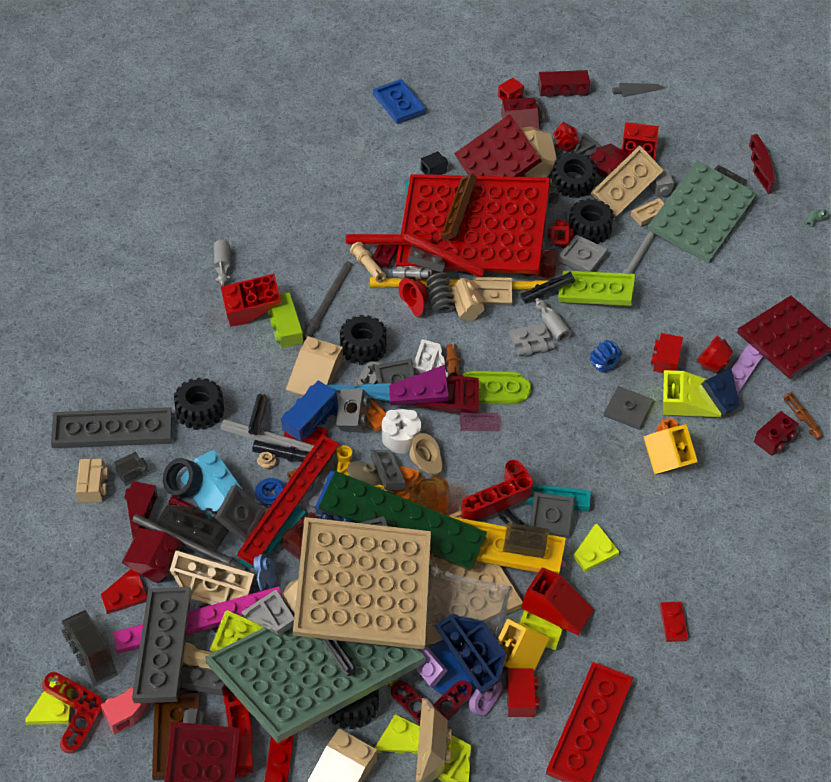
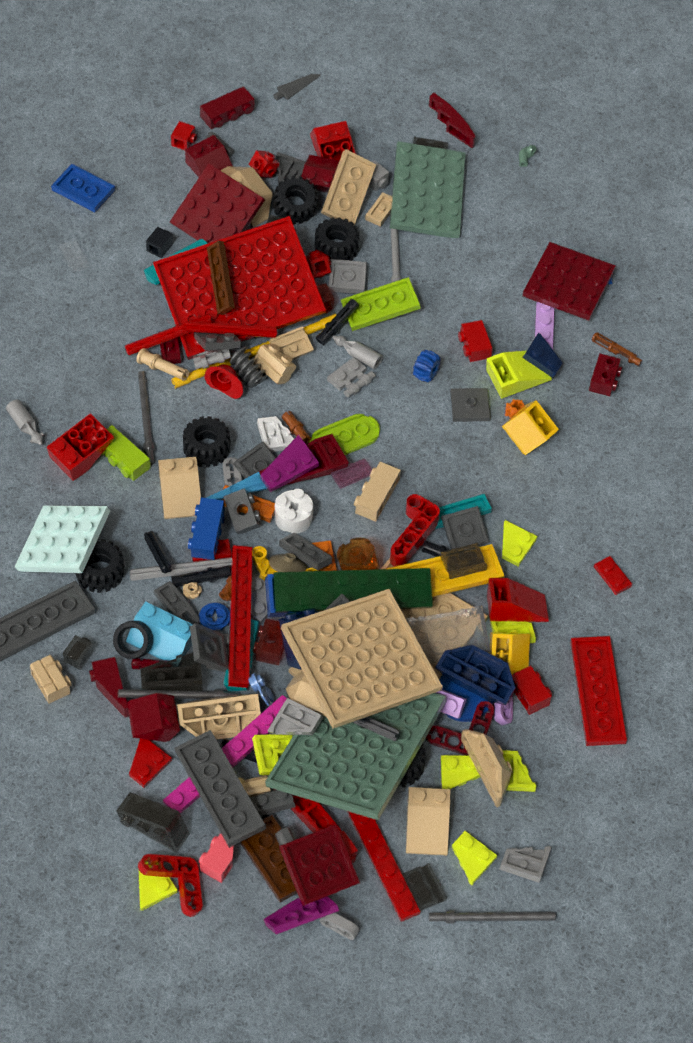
camera: 30 degrees left, 5 degrees up
(181, 367) = (62, 539): none -> light aqua plate
(244, 464) = (175, 602): none -> dark grey hinge
(426, 453) = (328, 524): tan piece -> none
(490, 446) = (377, 491): none -> tan brick
(715, 355) = (518, 325): red cone -> none

